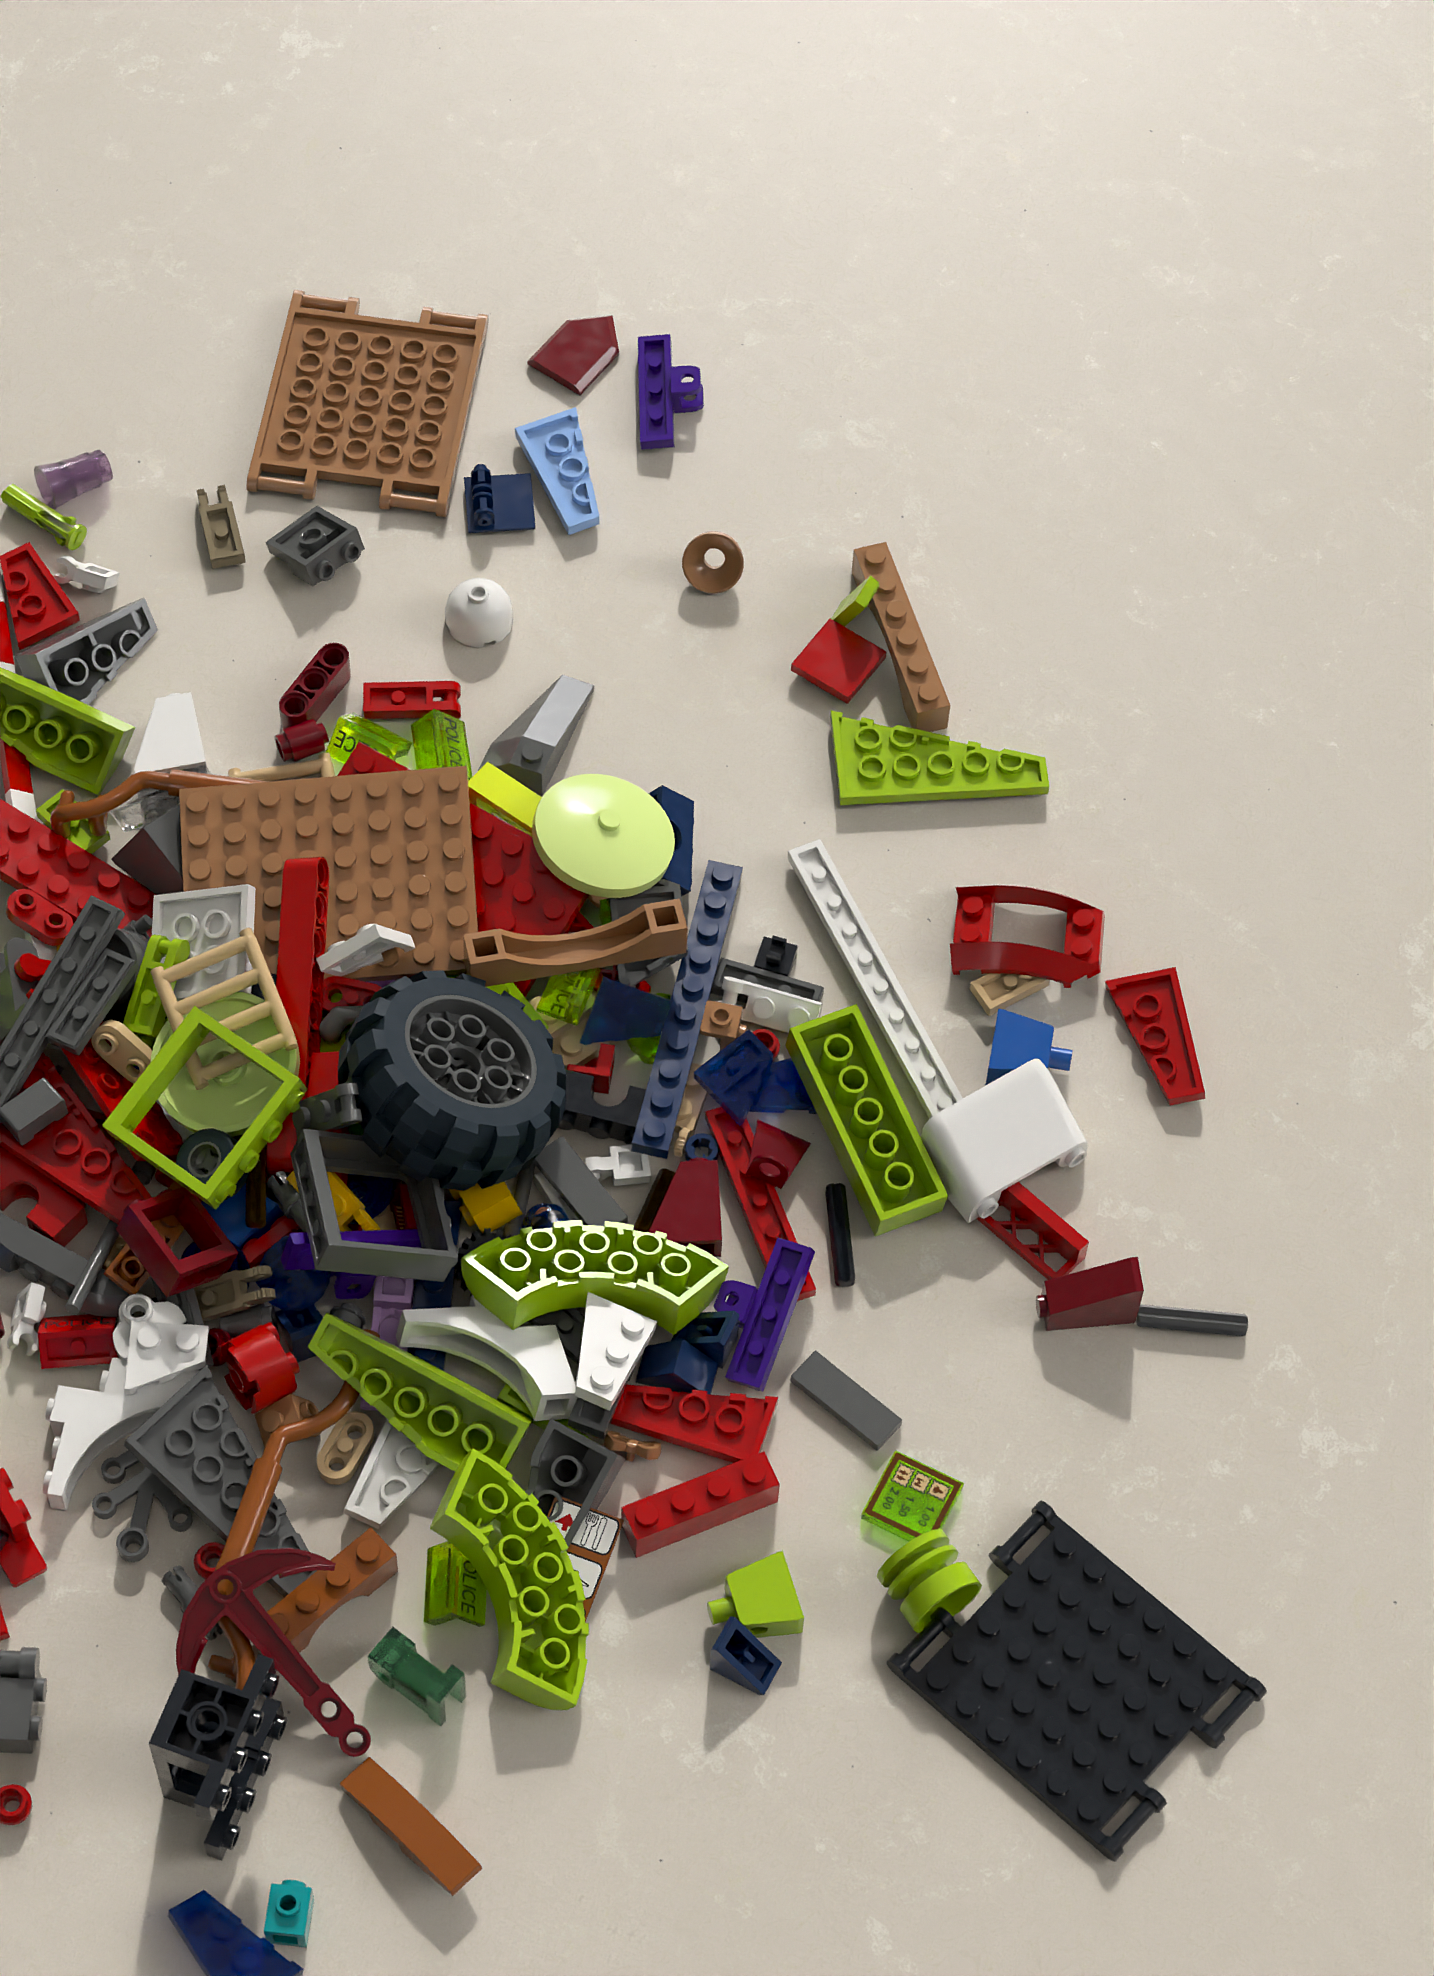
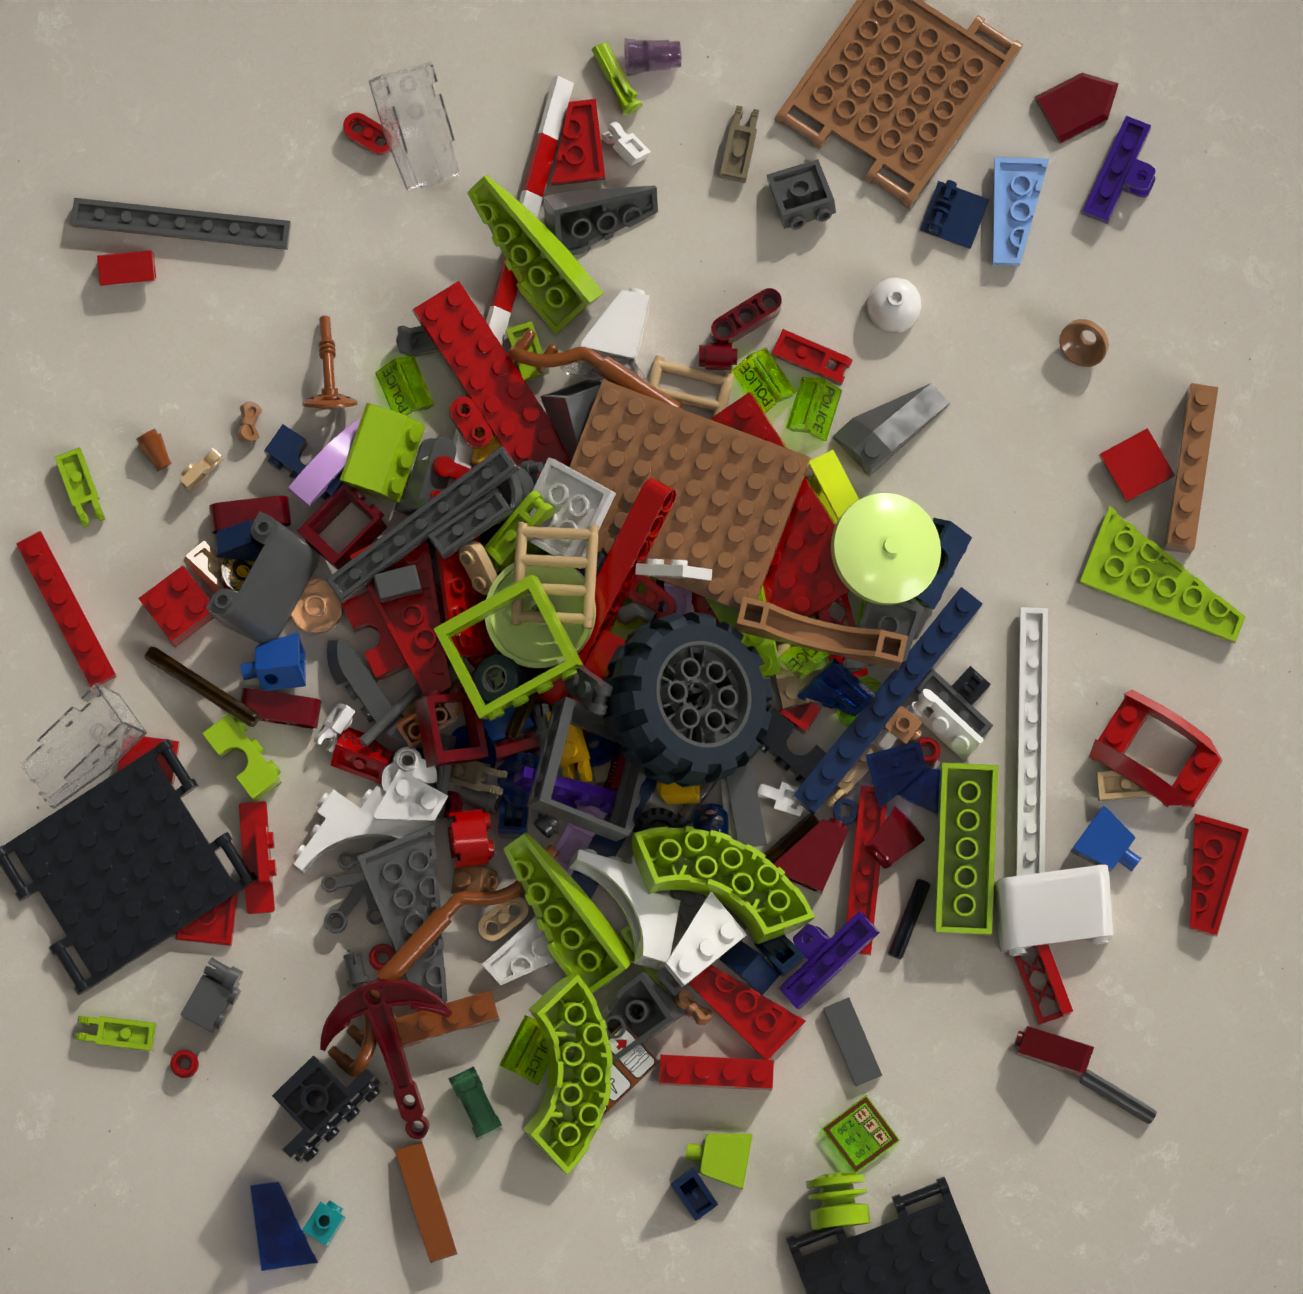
camera: 30 degrees right, 20 degrees up
(856, 601) = (1169, 427): lime tile -> none

